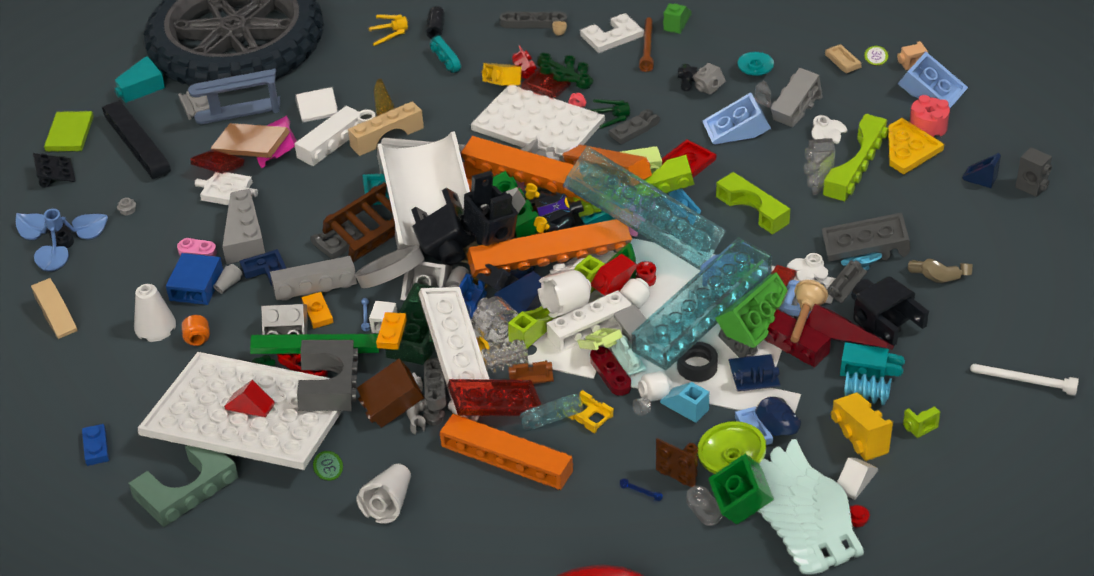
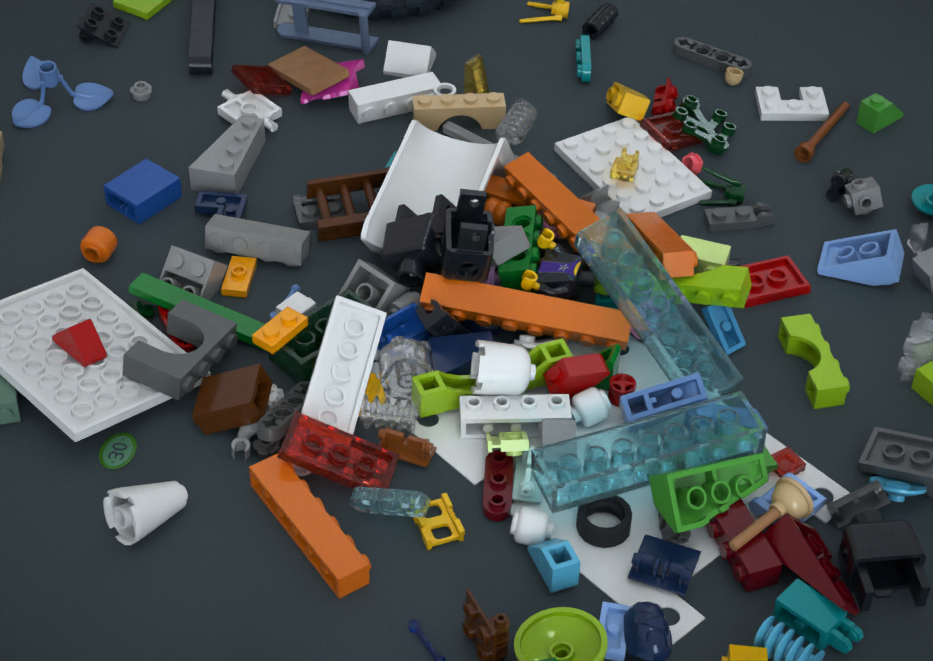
camera: 25 degrees right, 0 degrees up
(63, 237) = (58, 97): black plate -> none
(152, 315) = (67, 209): white cone -> none
(197, 247) = (172, 161): bright pink plate -> none
(229, 276) = (176, 204): light grey cone -> none
(389, 266) = (338, 259): light grey piece -> none
(434, 119) = (517, 122): none -> clear piece
(537, 121) = (625, 167): none -> clear yellow plate
(641, 406) = (502, 543): clear hinge -> none
(682, 268) = (663, 397): none -> medium blue slope
(809, 268) = (825, 468): white plate -> none

